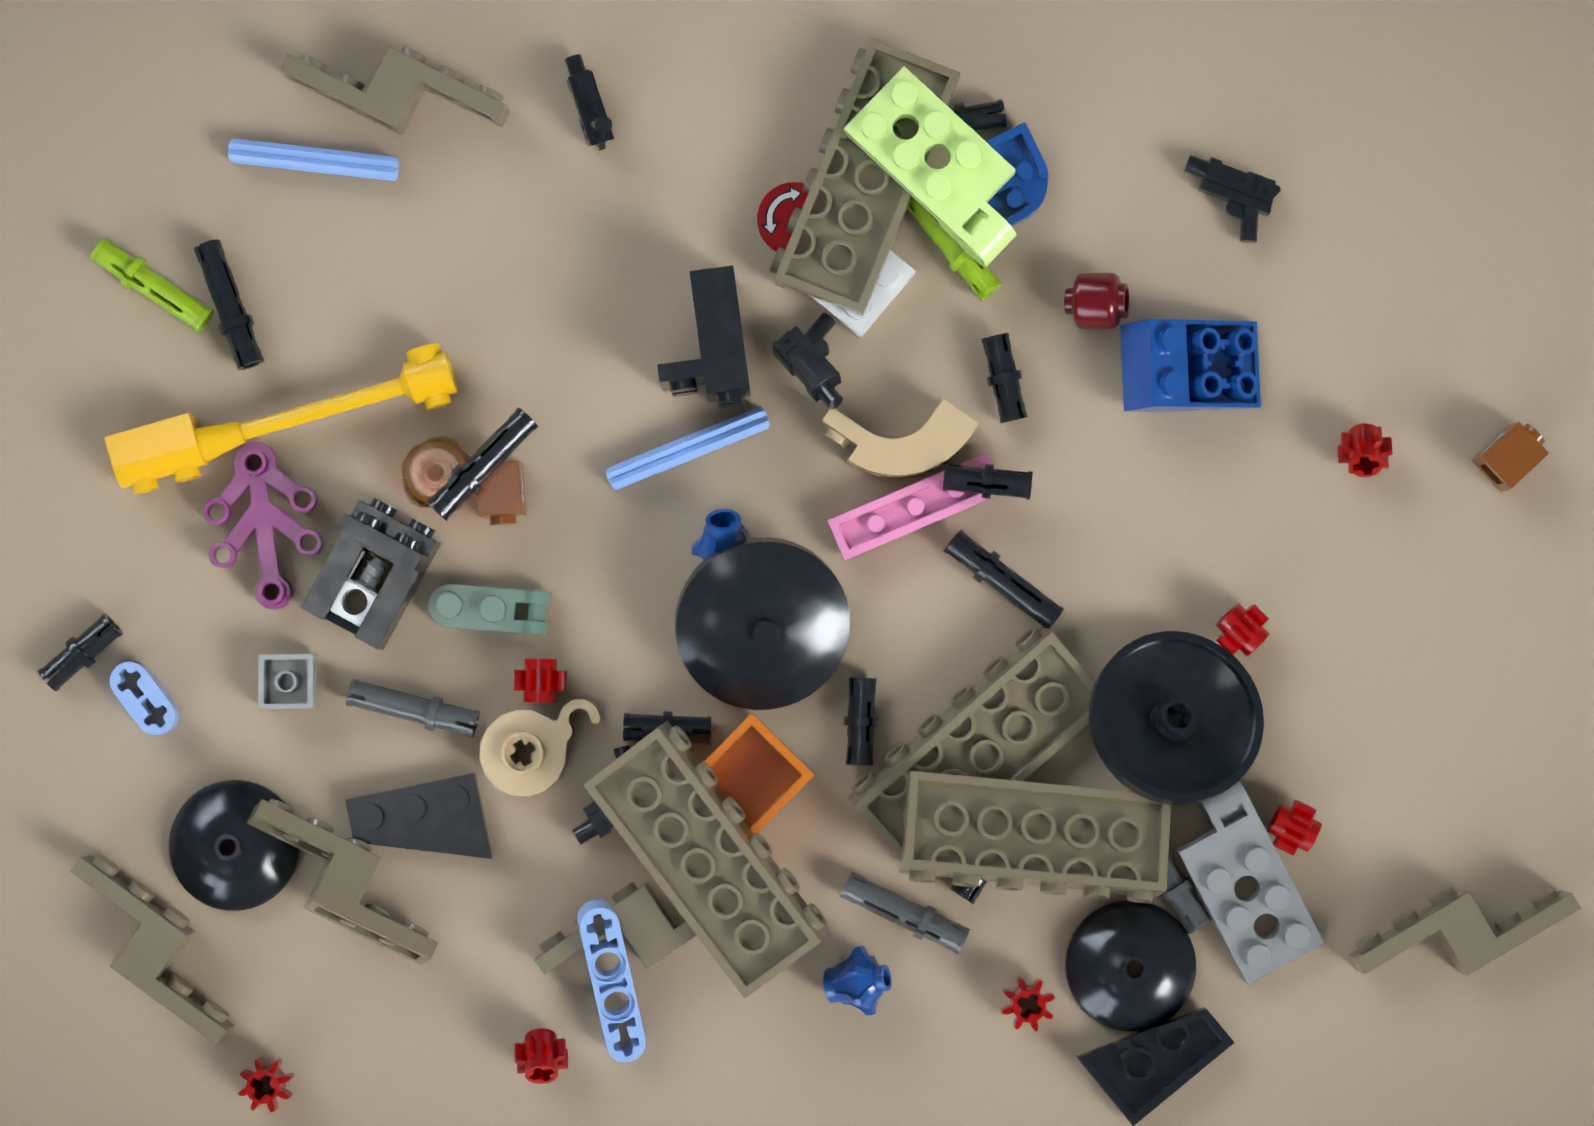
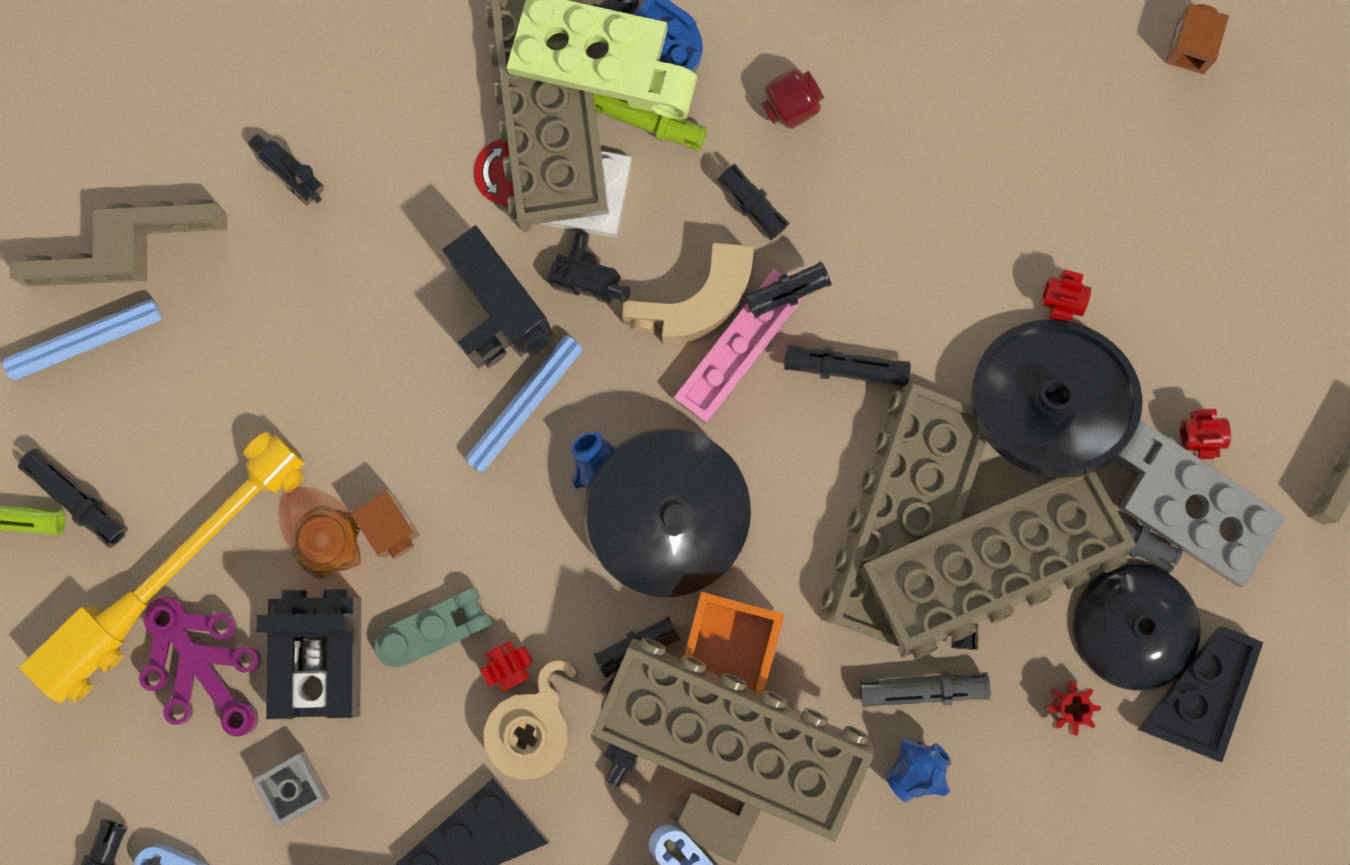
camera: 25 degrees left, 5 degrees down
(430, 712) = (429, 747): dark grey pin -> none
(469, 476) = (355, 510): black pin -> none
(861, 721) = (795, 549): black pin -> none
(1189, 365) = (896, 109): blue slope -> none
(1365, 450) = (1078, 97): red gear -> none

